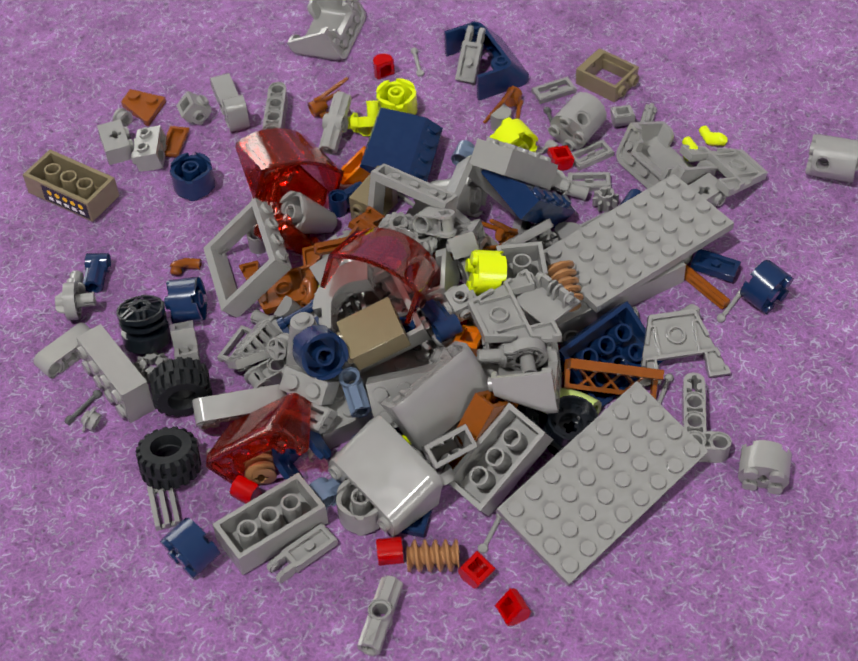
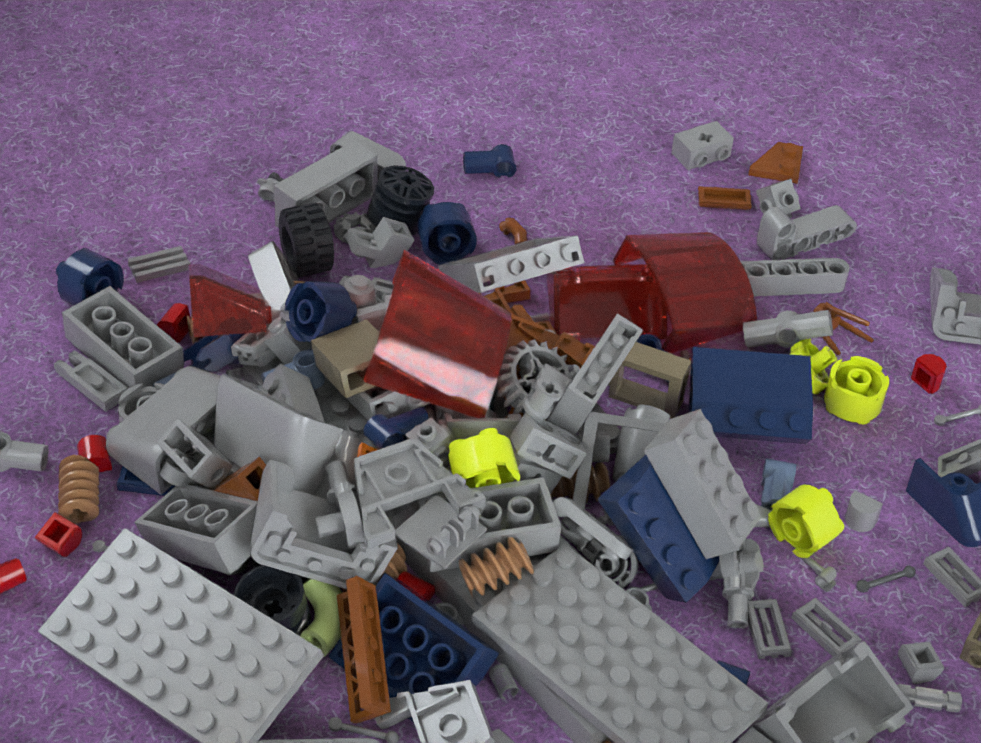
camera: 75 degrees right, 5 degrees down
(71, 185) = (614, 118): dark tan brick -> none
(74, 297) = (441, 146): light grey pin -> none
(125, 116) = (752, 141): light grey bush -> none
(149, 148) = (699, 172): light grey brick -> none
(168, 458) = (213, 244): black tyre -> none
(192, 176) = (656, 210): dark blue brick -> none
(307, 214) = (594, 308): light grey cone -> none
(502, 233) = (591, 503): dark orange plant -> none
(511, 99) = (916, 521): dark orange plant -> none
(561, 156) = (801, 585): red brick -> none
(566, 228) = (655, 600): light grey piece -> none
(578, 120) = (885, 604): light grey cylinder -> none
(605, 199) = (726, 644): light grey gear -> none

